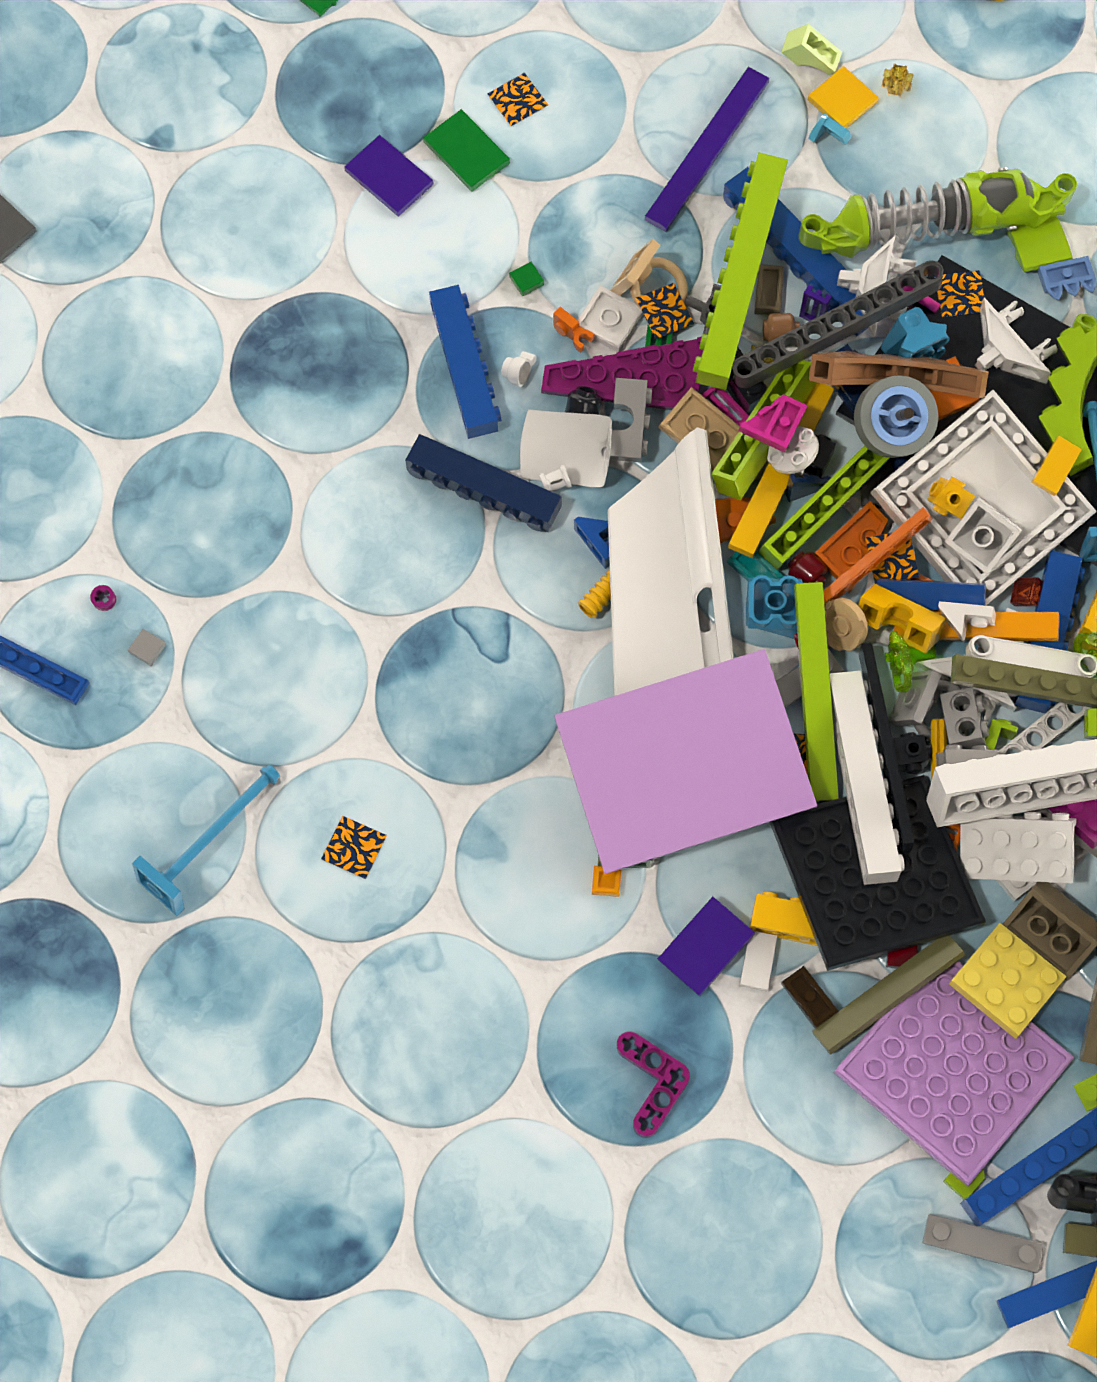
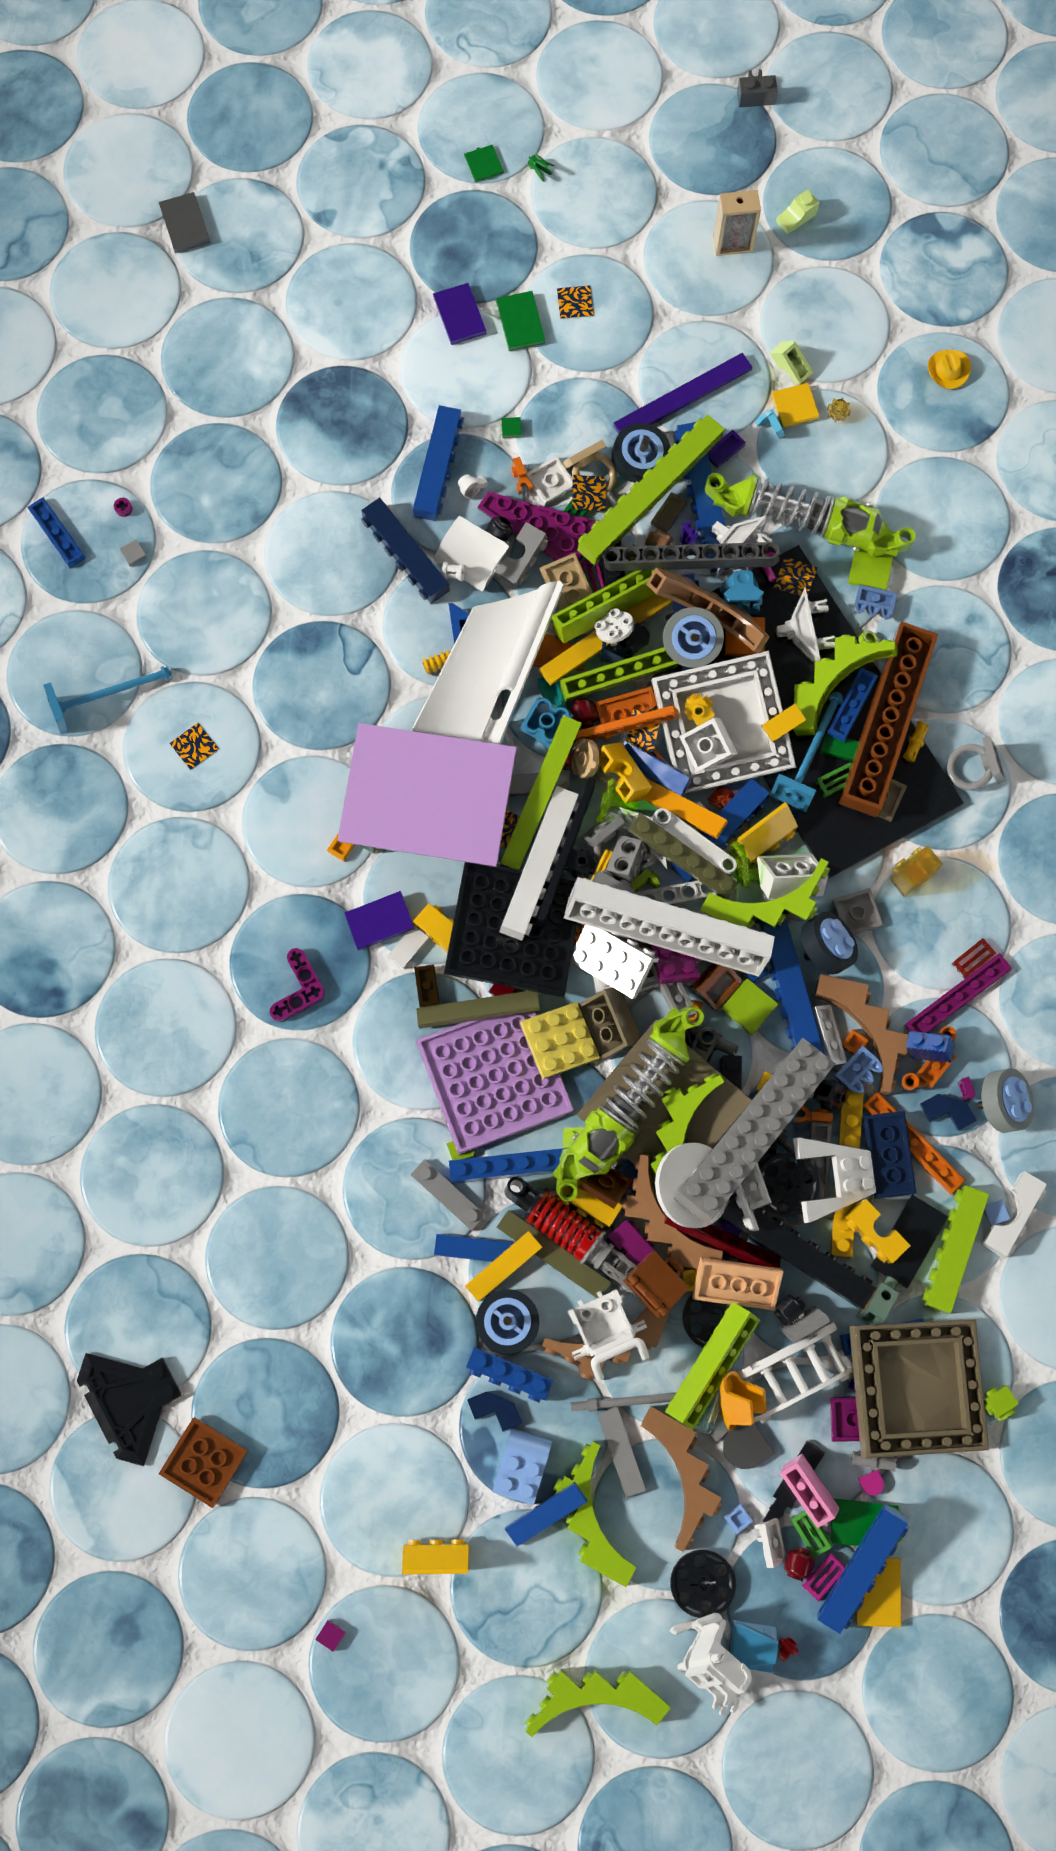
camera: 25 degrees right, 5 degrees up
(698, 234) = (638, 449): none -> wheel
(775, 423) = (611, 602): dark pink wing -> none
(794, 184) = (725, 448): none -> dark purple tile
(960, 614) = (662, 791): white slope -> none

